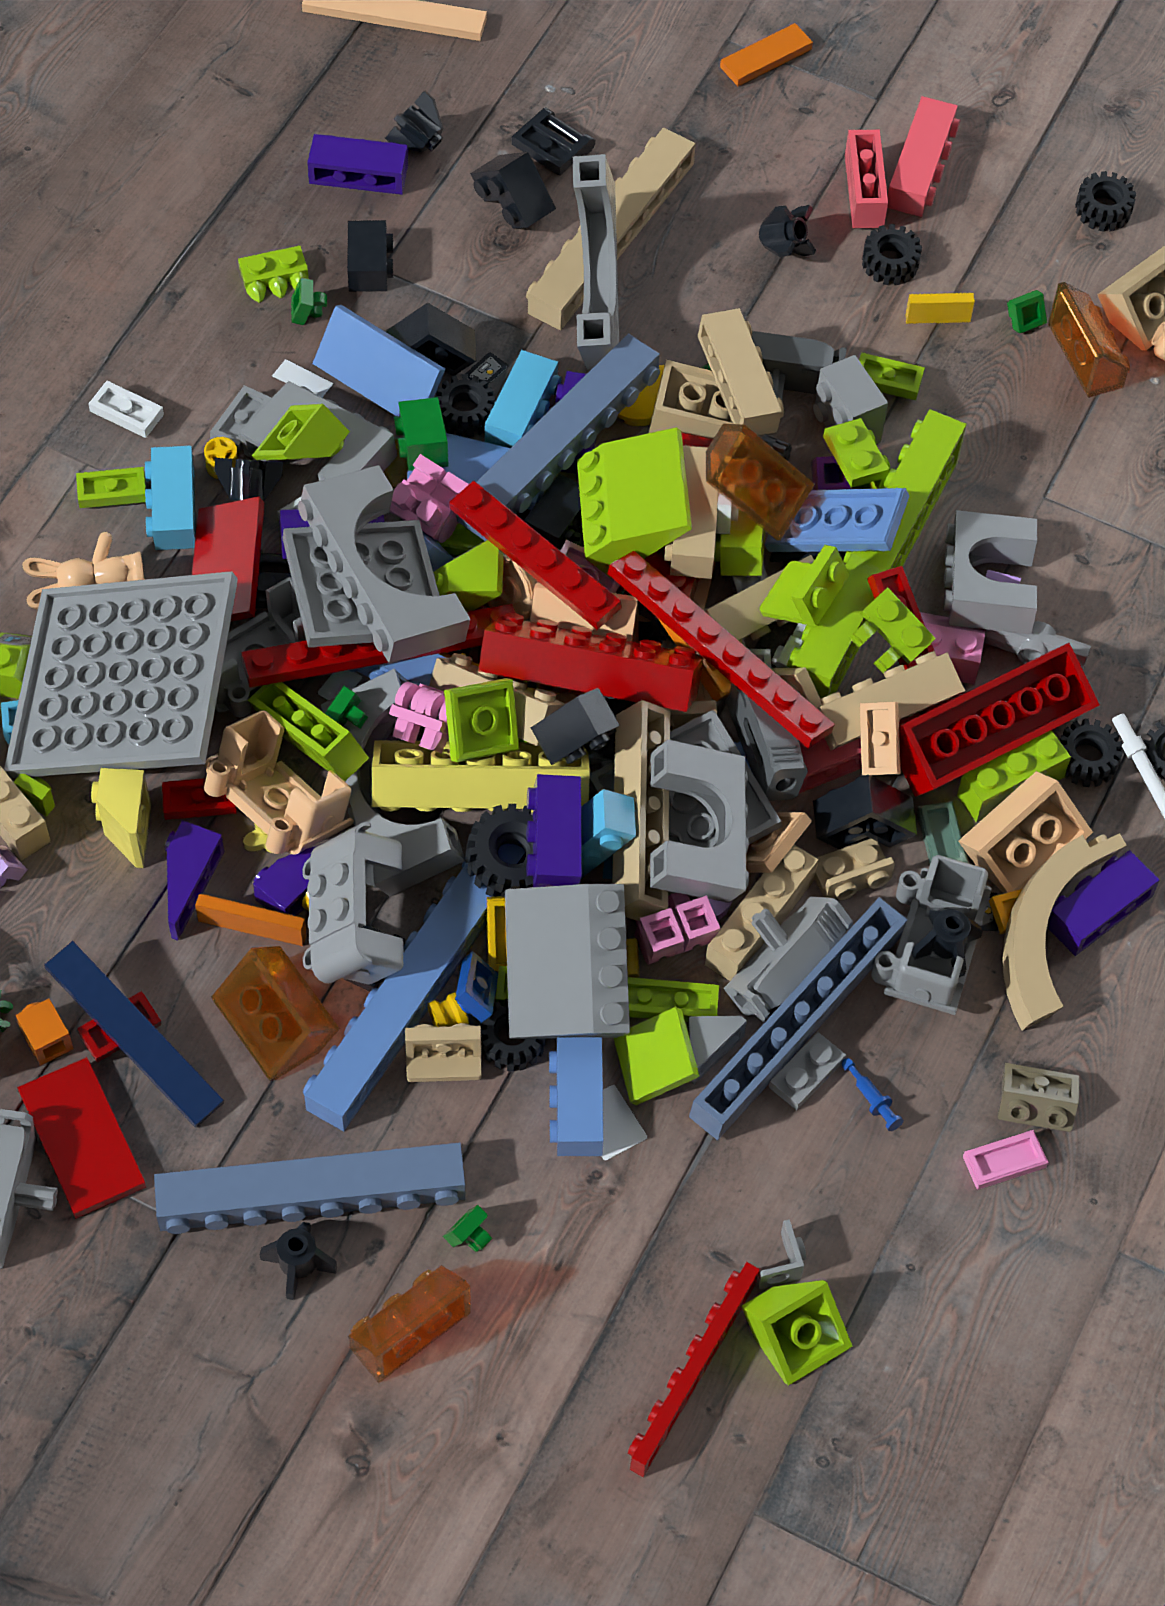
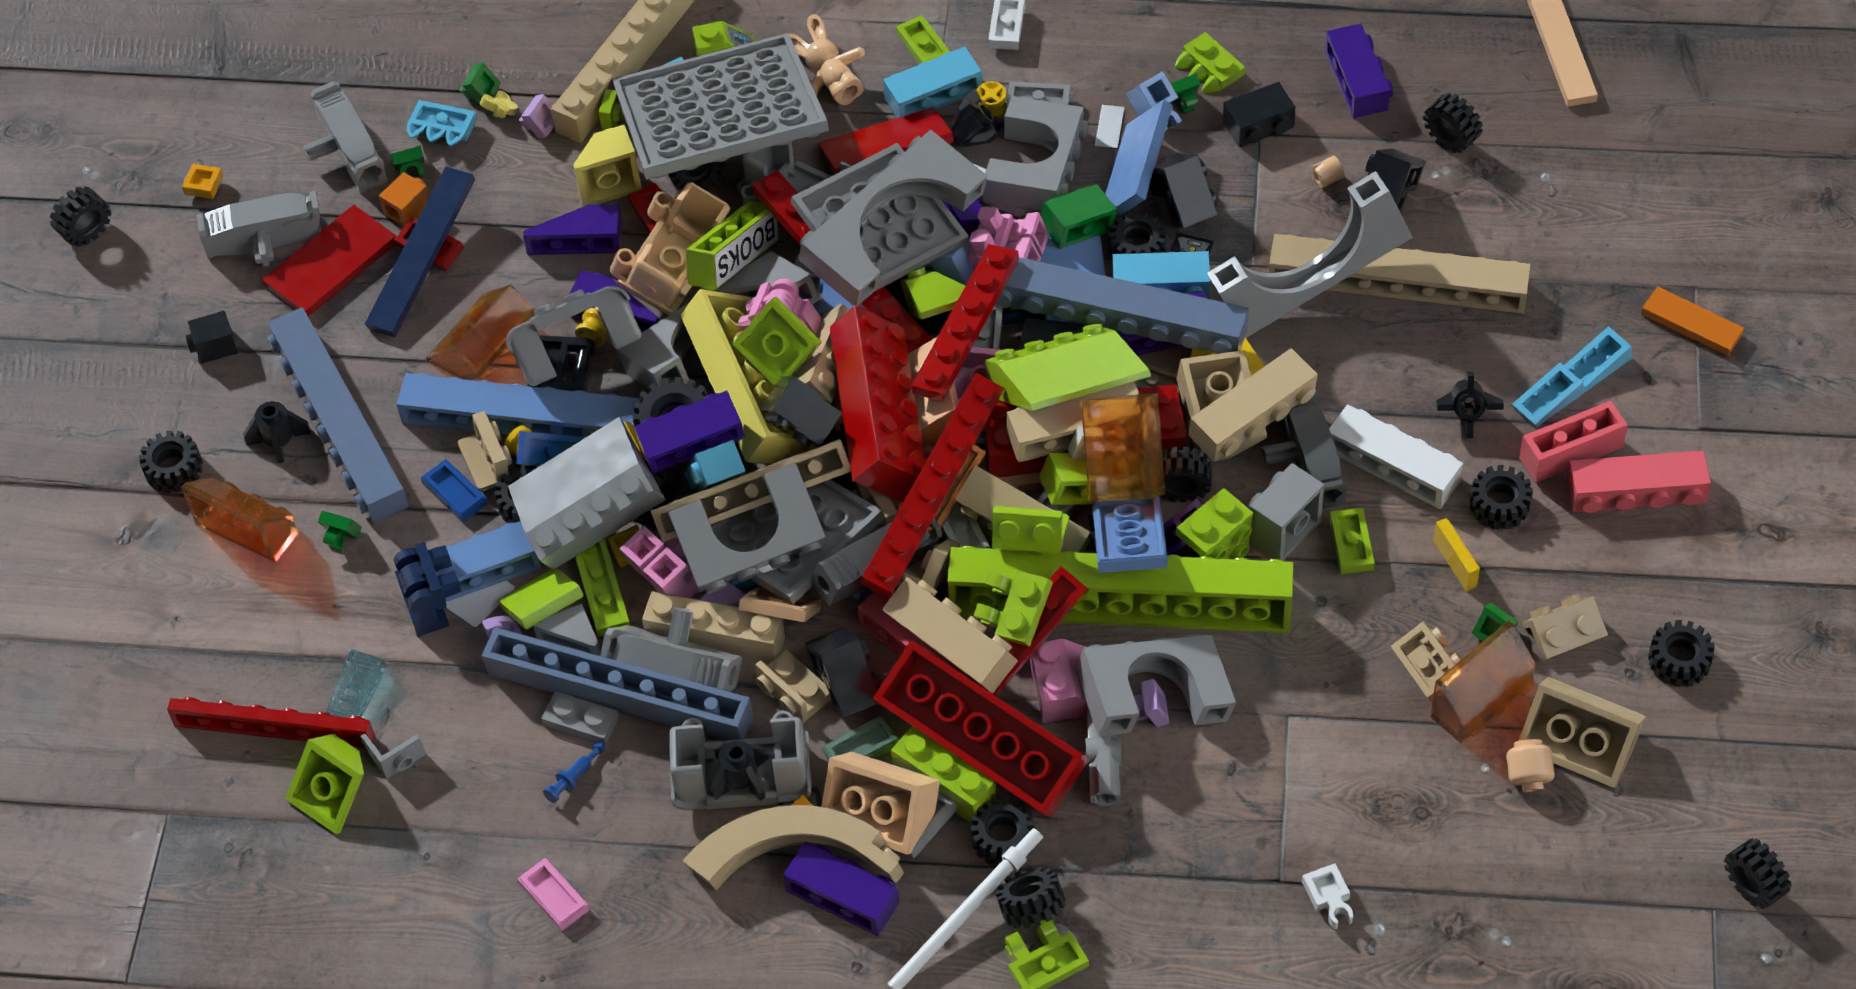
camera: 75 degrees right, 5 degrees down
(132, 1289) = (211, 337): none -> black brick
(251, 919) = (556, 281): orange tile -> none
(292, 1404) = (167, 447): none -> black tyre
(302, 324) = (1151, 93): none -> light blue brick
(303, 433) = (1016, 132): lime slope -> none
(345, 709) = (758, 258): green tile -> none
(419, 127) = (1421, 90): black brick -> none
(463, 233) = (1327, 171): none -> light nougat hose
(465, 1104) = (454, 490): none -> blue tile
(470, 117) = (1452, 122): none -> black tyre
(549, 147) = (1466, 192): black plate -> none
(599, 1157) = (422, 588): none -> dark blue hips
(672, 1111) = (501, 622): none -> lavender tile
(677, 1253) = (349, 671): none -> clear light blue slope
(785, 155) = (1573, 379): none -> medium azure slope
(820, 304) = (1395, 456): none -> white brick
(880, 738) = (895, 633): light nougat plate -> none
(1039, 1097) = (622, 896): dark tan bracket -> none
(1041, 263) = (1567, 626): none -> tan bracket
(1041, 370) = (1425, 656): none -> tan bracket

